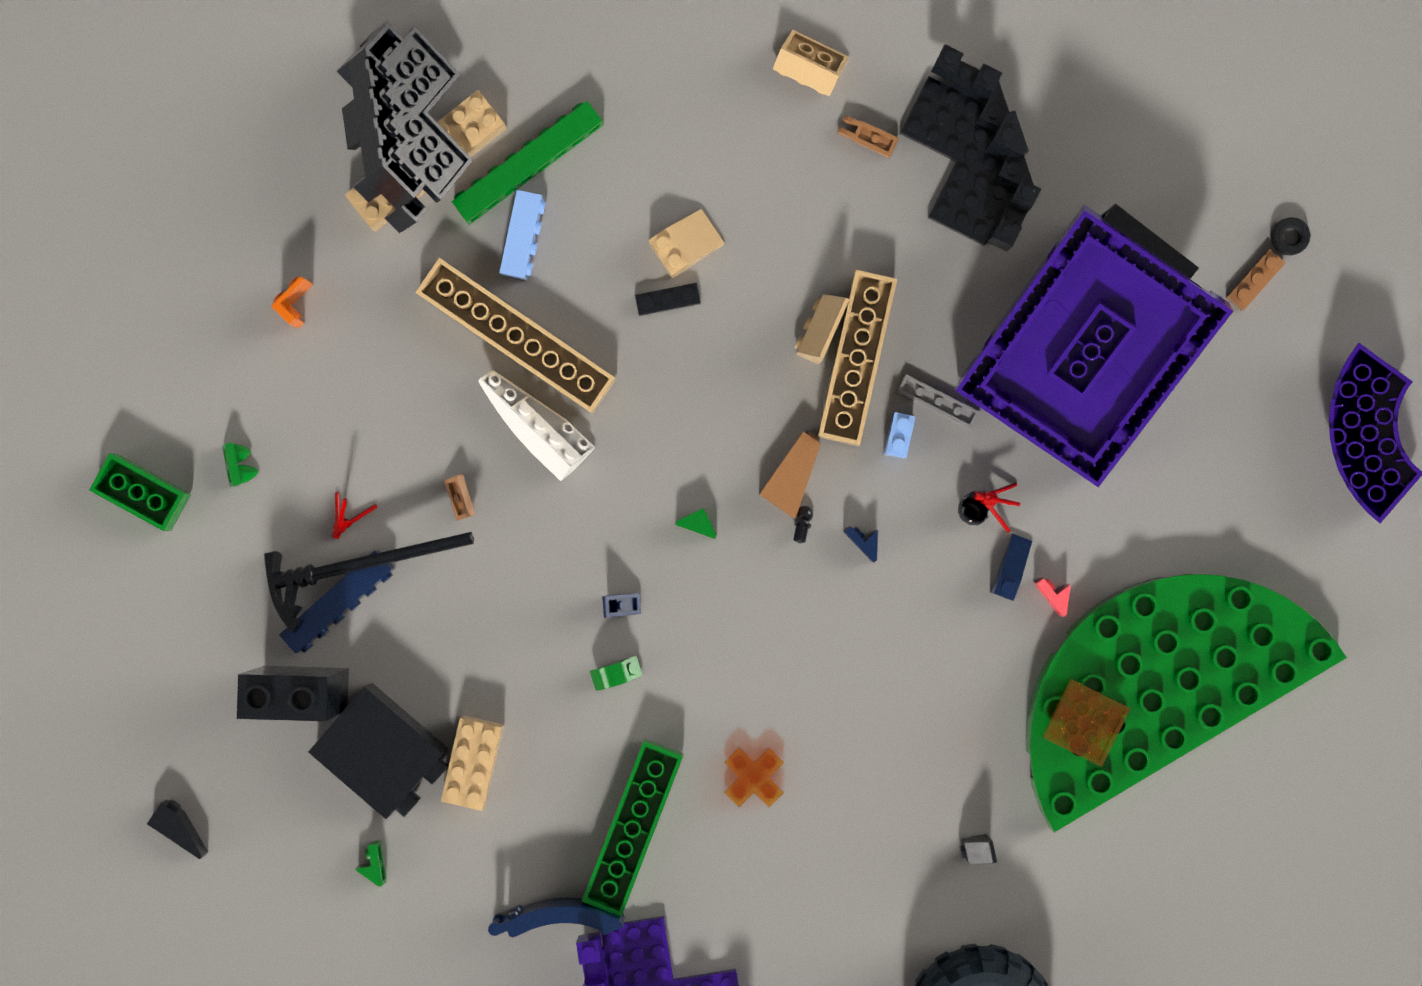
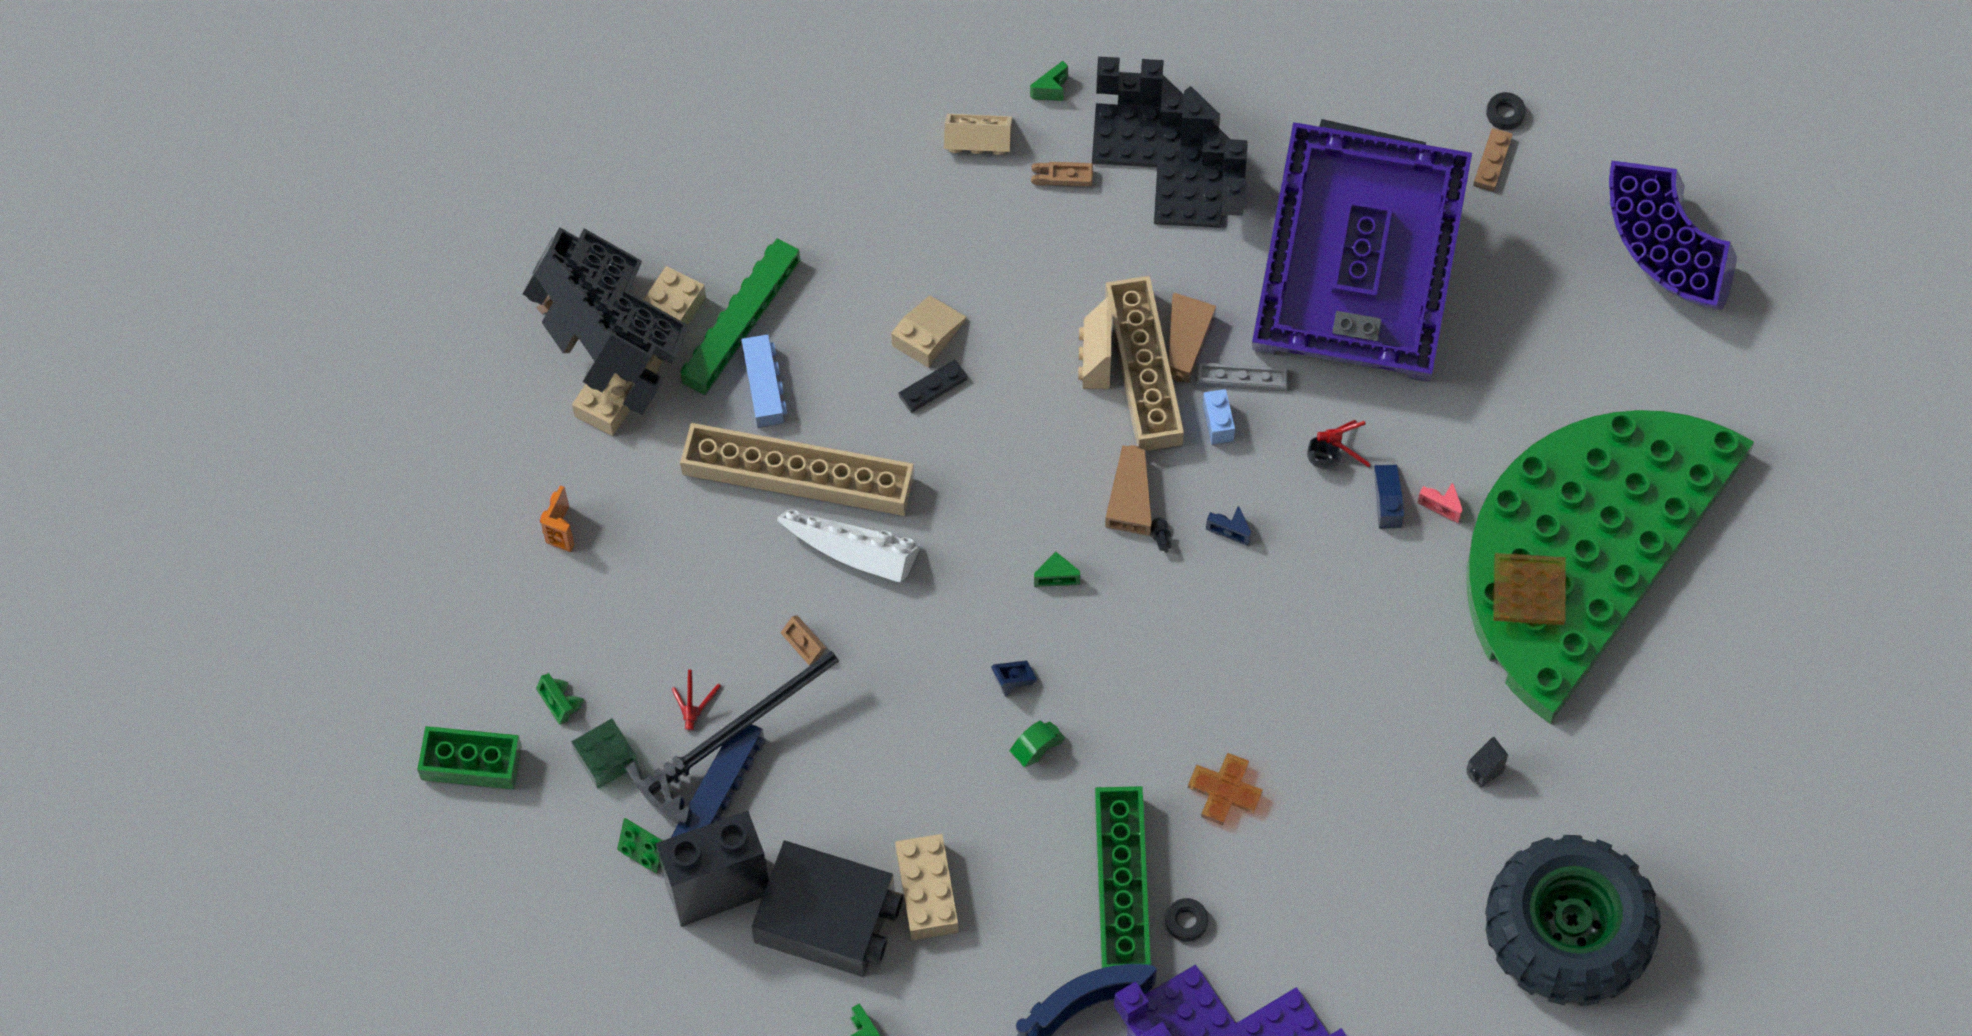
camera: 20 degrees left, 25 degrees down
(245, 624) = (639, 845): none -> green hinge
(254, 533) = (603, 753): none -> clear green brick
(664, 885) = (1186, 905): none -> black tyre
(892, 40) = (1049, 85): none -> green slope
(909, 341) = (1188, 332): none -> medium nougat slope
(1053, 415) = (1356, 326): none -> dark grey brick

